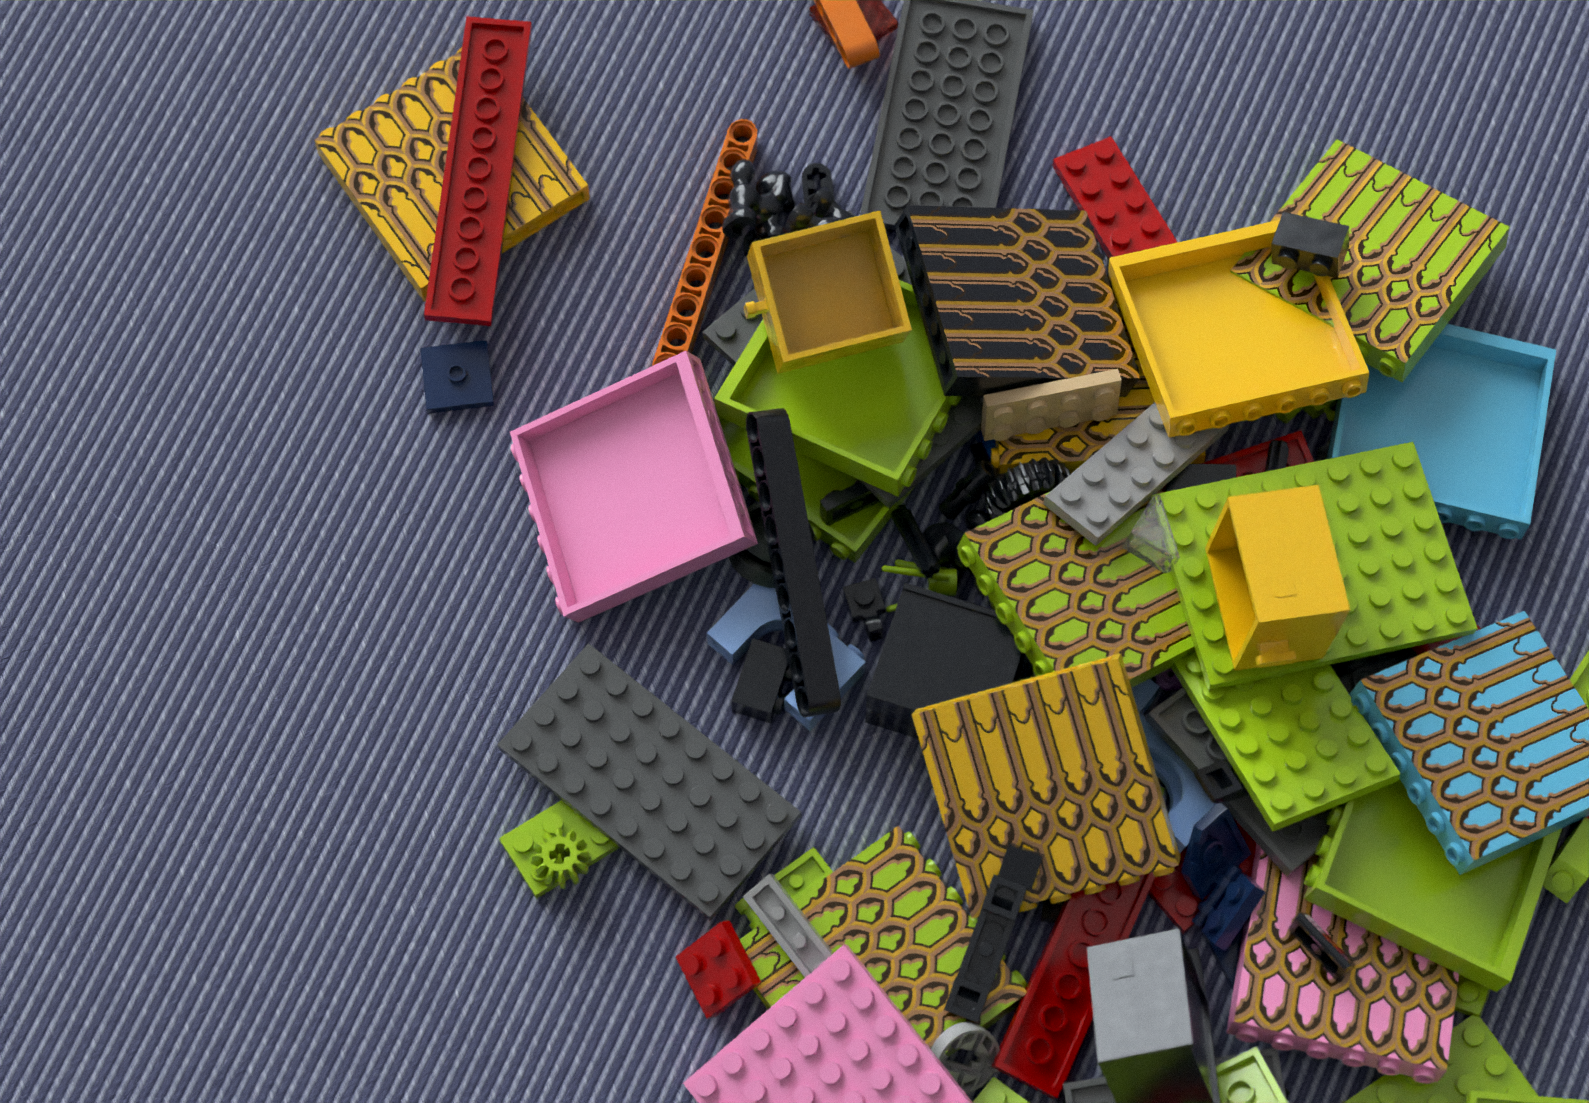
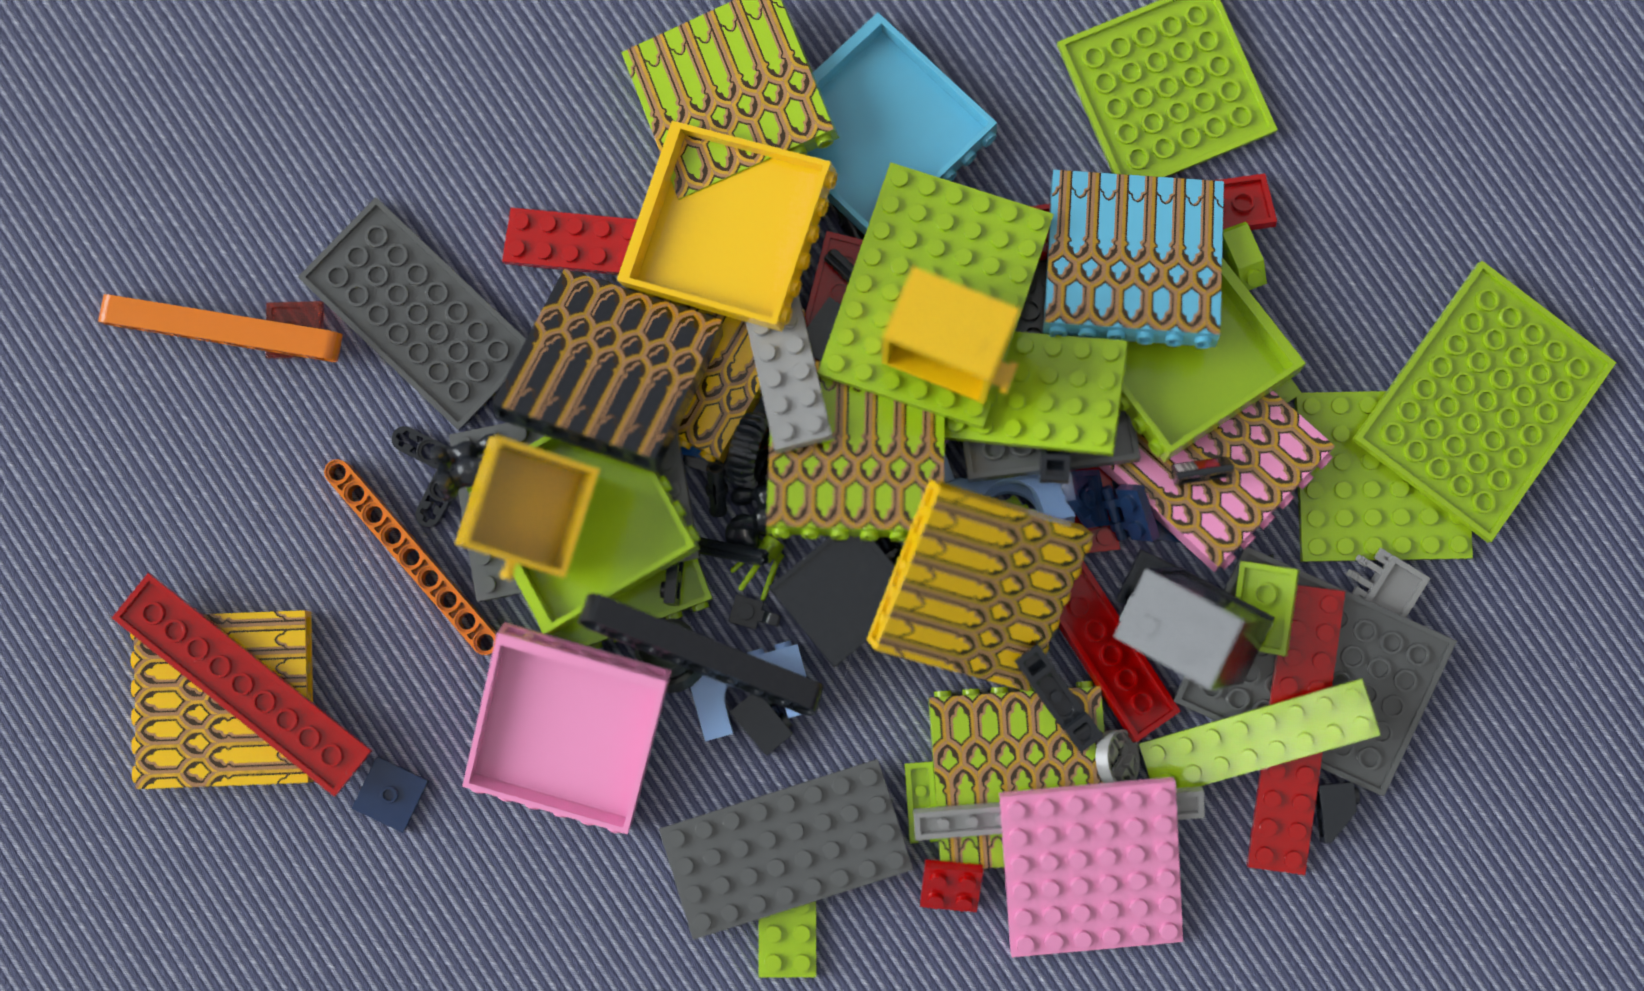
camera: 55 degrees left, 15 degrees up
(573, 860) = (815, 945): lime gear -> none
(757, 206) = (406, 499): black animal -> none
(1021, 865) = (1021, 638): black tile -> none
(1050, 405) = (705, 390): tan plate -> none
(1153, 538) = (849, 393): clear slope -> none
(1310, 245) = (704, 134): black brick -> none

